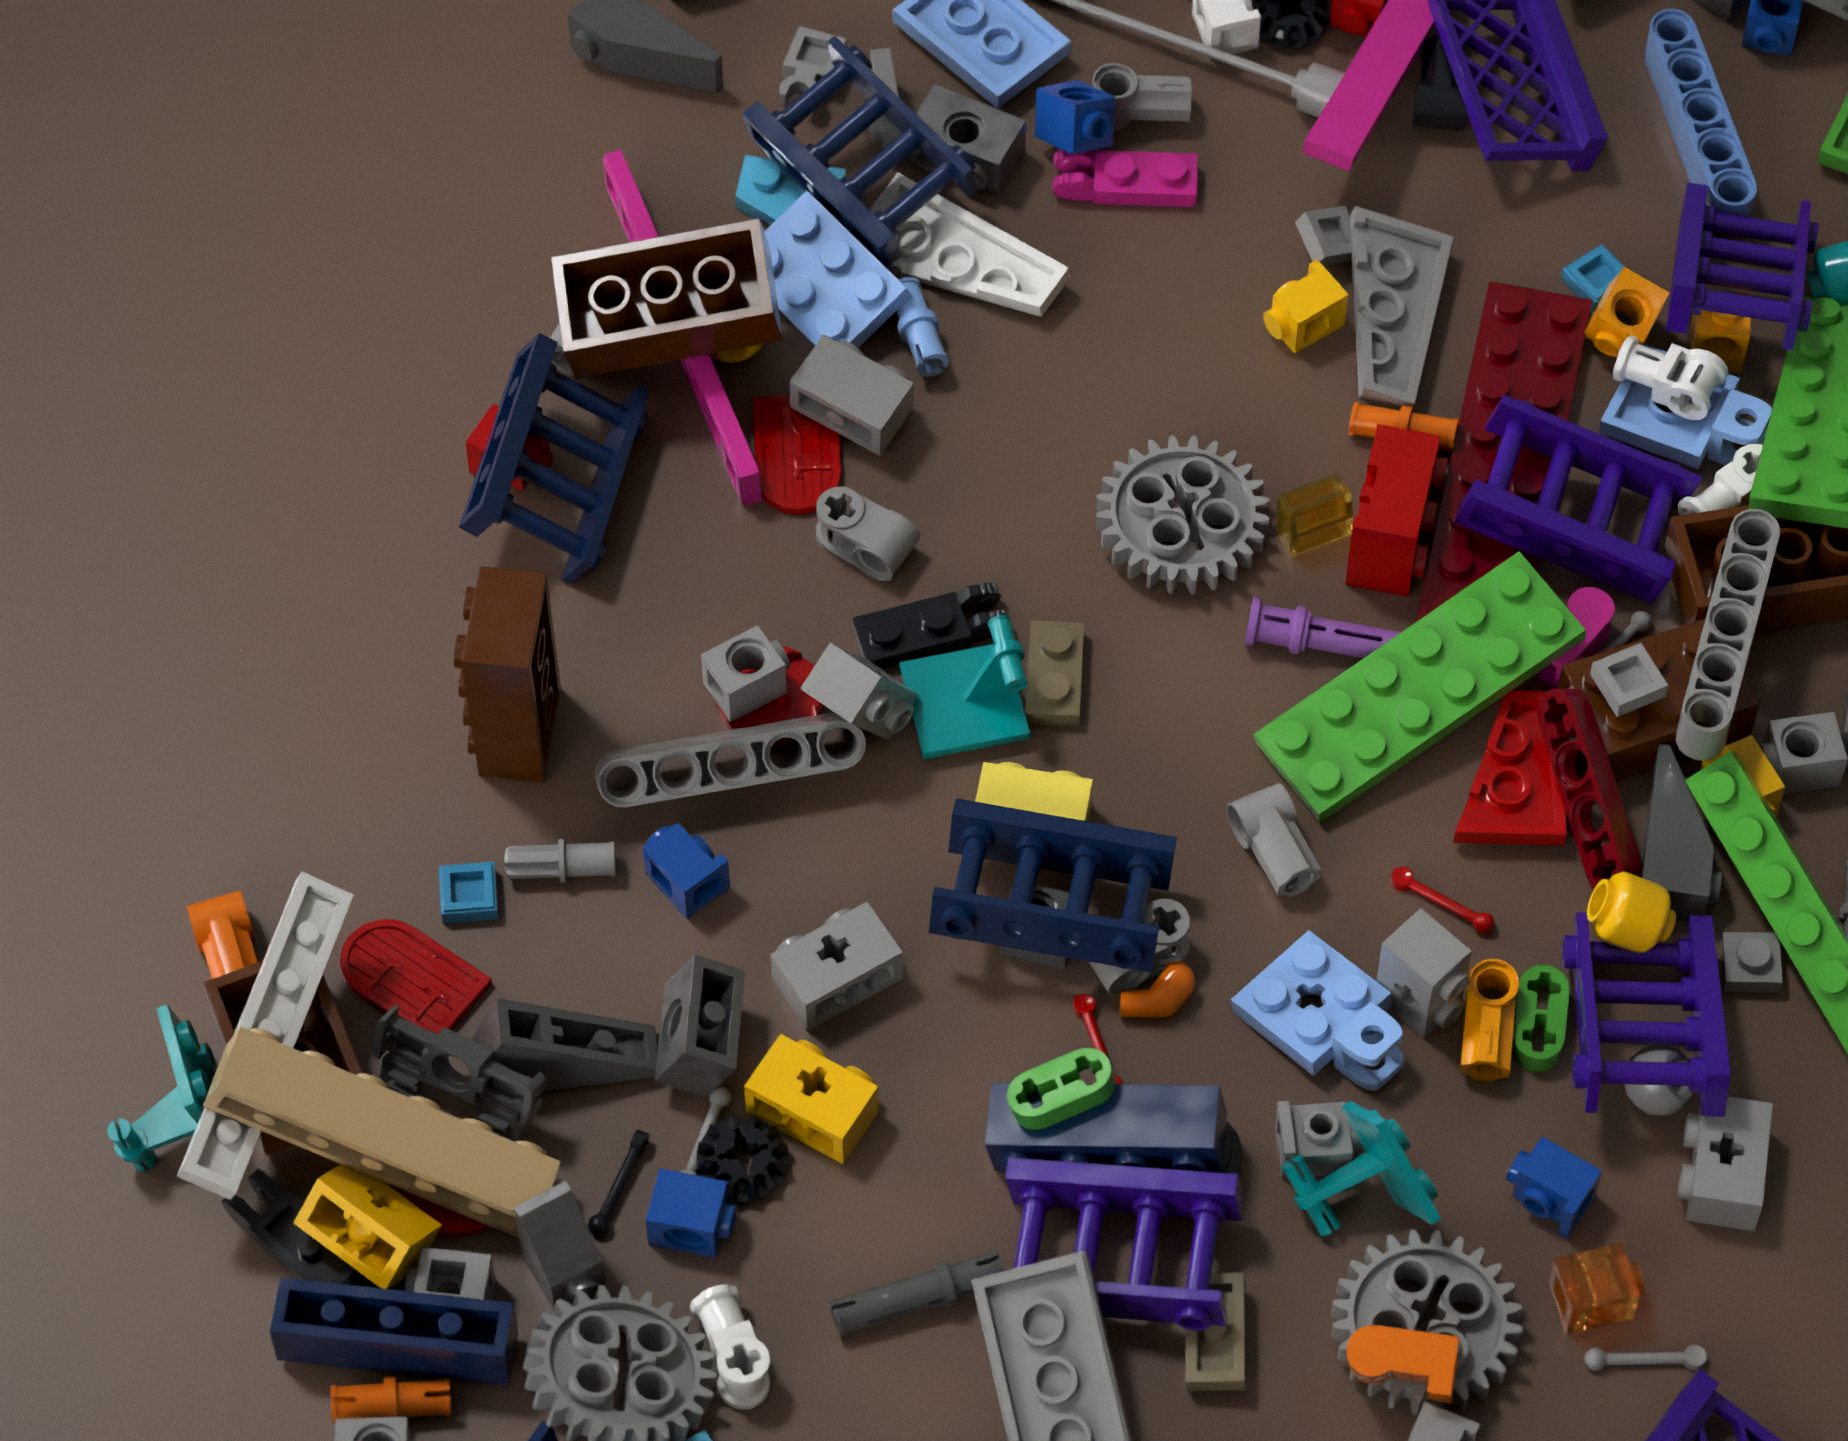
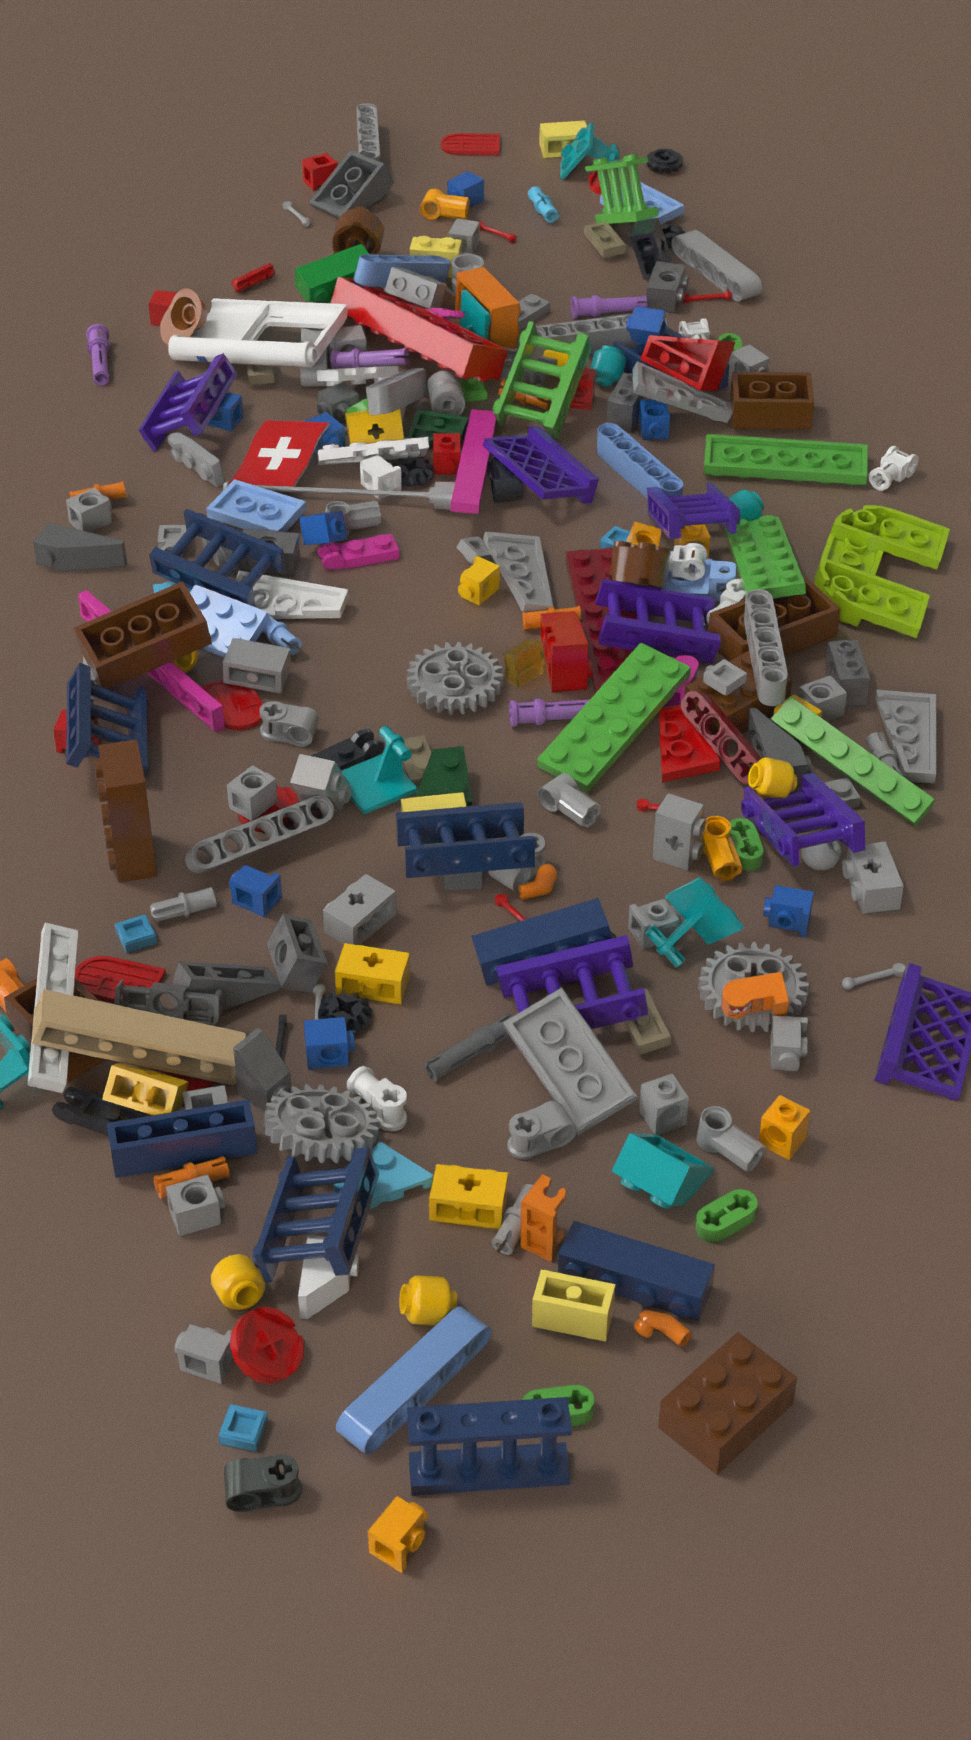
camera: 20 degrees left, 15 degrees down
(1061, 1088) = (512, 923): bright green beam -> none
(1081, 731) = (446, 774): none -> dark green wing
(1346, 1028) = (642, 868): light blue plate -> none
(1585, 379) = (640, 564): none -> reddish brown brick
(1595, 1287) = (833, 948): clear orange brick -> none

